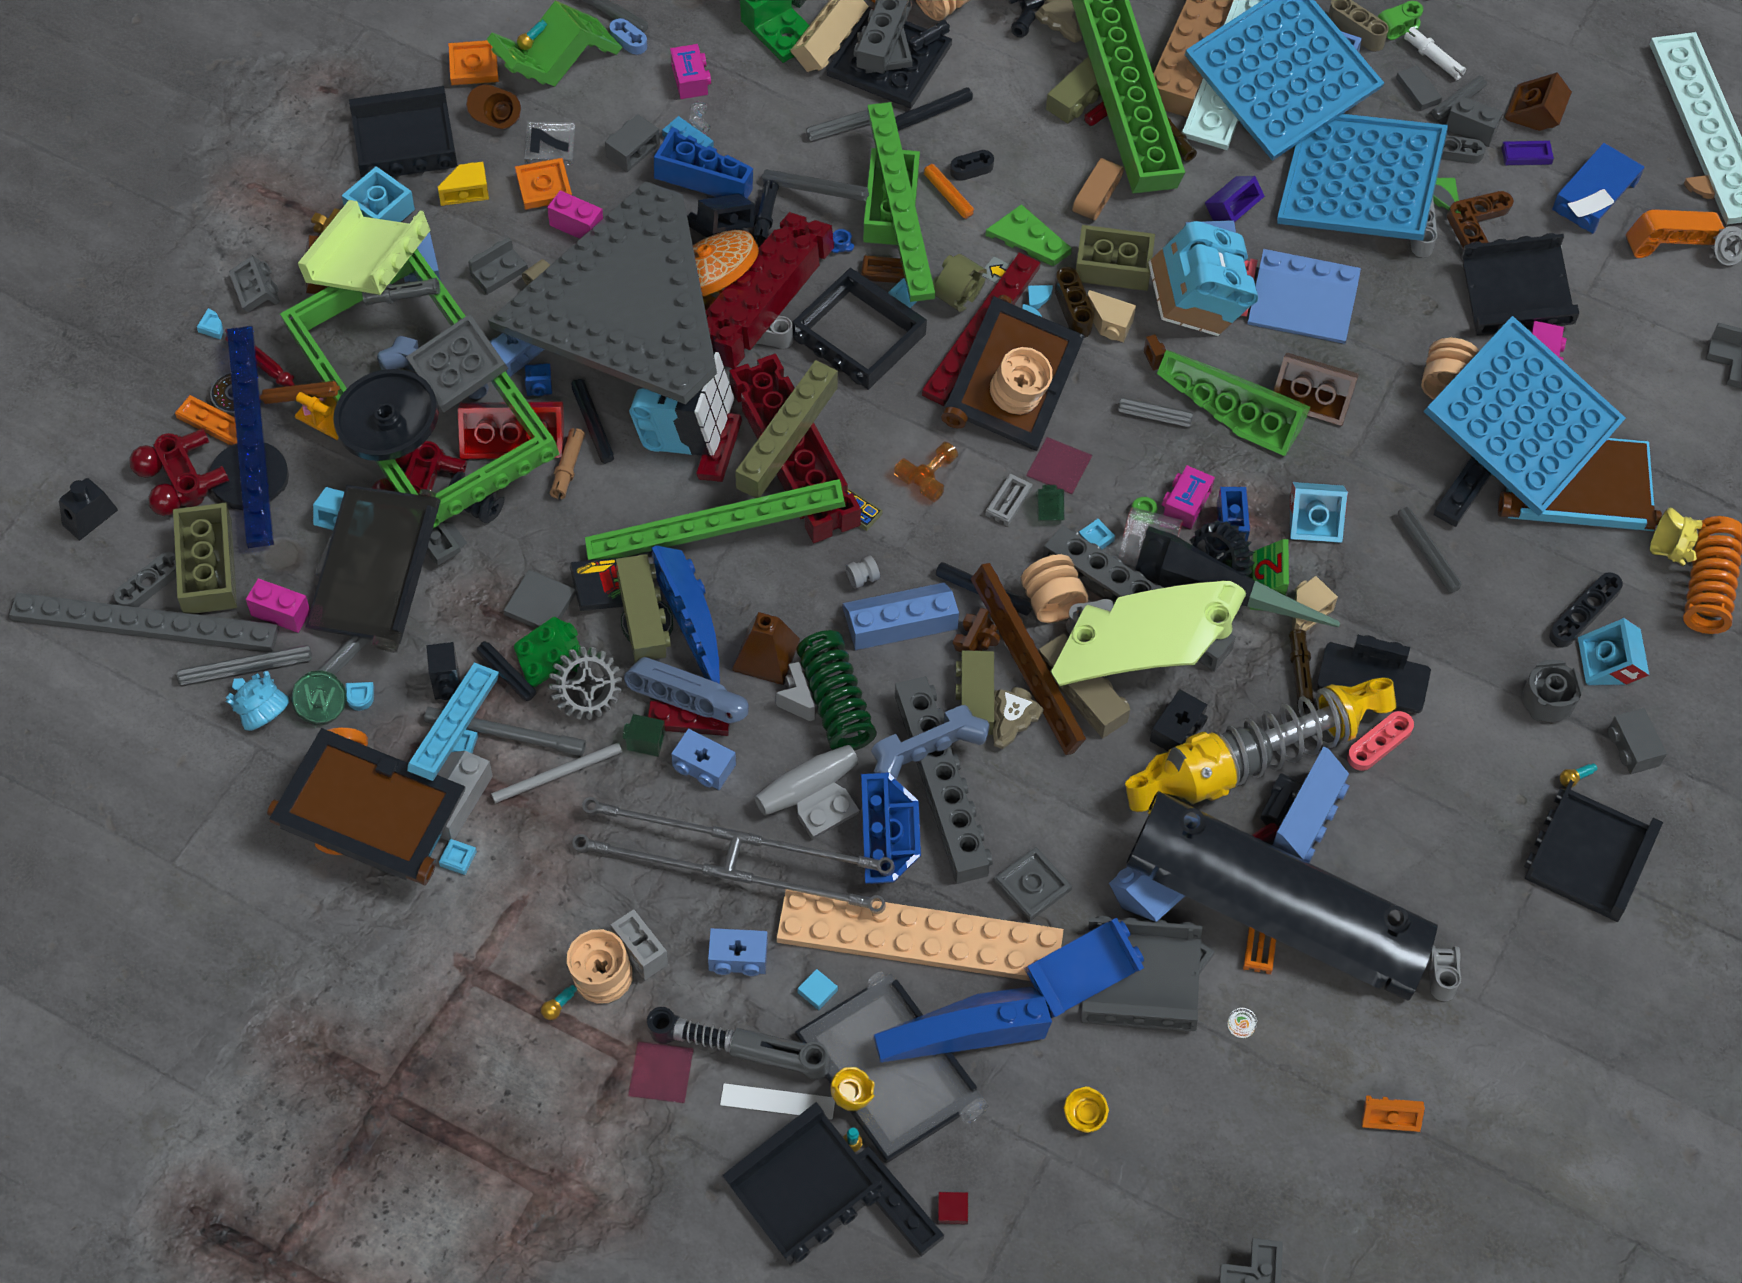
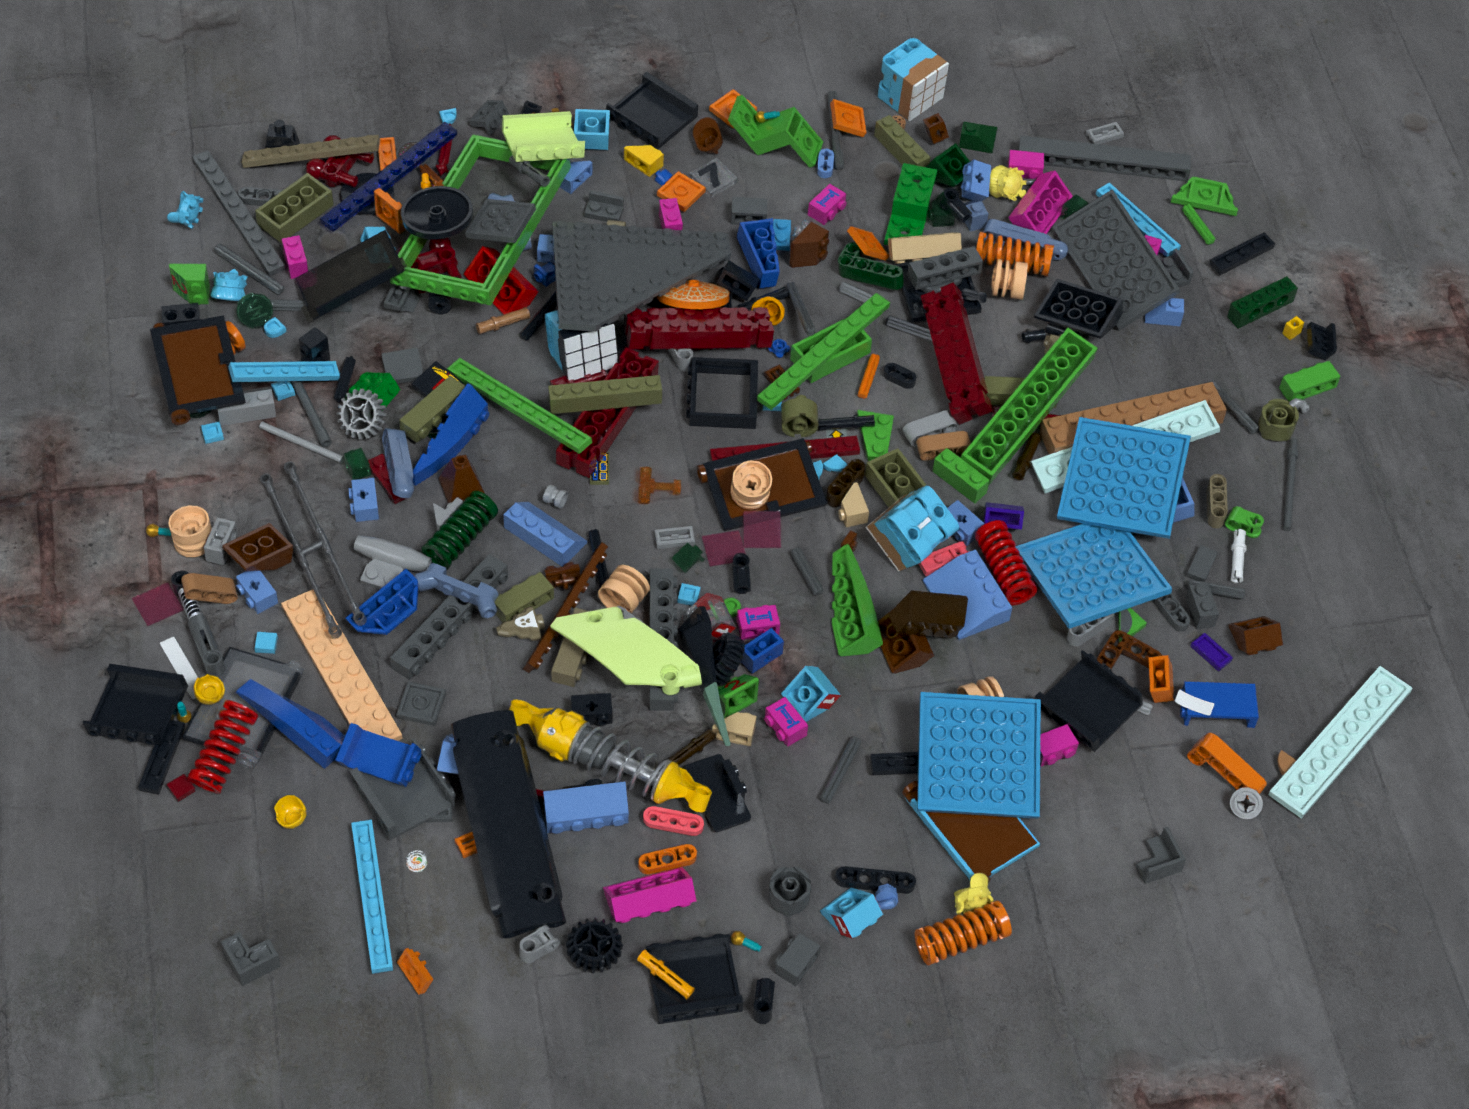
camera: 50 degrees right, 5 degrees down
(94, 671) = (187, 210): none -> medium azure hair
(137, 487) = (311, 150): none -> dark tan plate
(218, 735) = (191, 282): none -> bright green slope
(251, 779) = (180, 313): none -> black brick
(290, 242) = (530, 107): none -> black plate
(311, 465) = (388, 210): none -> orange plate
(503, 187) = (662, 176): none -> blue piece
(694, 908) = (260, 549): none -> reddish brown slope
(701, 999) = (209, 588): none -> medium nougat beam
(739, 120) = (809, 246): none -> reddish brown slope
(780, 71) = (868, 243): none -> orange tile
(784, 205) = (774, 308): none -> light orange piece
(816, 96) = (877, 273): none -> dark green beam
(926, 1077) = (197, 775): none -> red piece
(1001, 94) = (956, 353): none -> dark red brick
(1003, 241) = (847, 422): none -> black pin
(1065, 185) = (934, 424): none -> light grey beam
(1068, 415) = (762, 529): none -> clear pink piece
(1113, 470) = (741, 574): none -> black piece
(1151, 200) = (960, 475): none -> bright green brick
(1259, 1096) = (372, 897): none -> medium azure plate
(1313, 247) = (996, 565): none -> red piece
(1325, 342) = (930, 614): none -> dark brown slope
(1335, 556) = (786, 721): none -> dark pink brick
(1424, 789) = (680, 850): none -> orange beam
(1457, 822) = (650, 894): none -> dark pink slope
(1506, 919) = (609, 938): none -> black gear
(1537, 210) = (1161, 679): none -> orange brick
(1562, 874) = (658, 968): none -> light orange pin
(1617, 609) = (886, 896): none -> medium blue piece
(1664, 804) = (763, 1000): none -> black piece

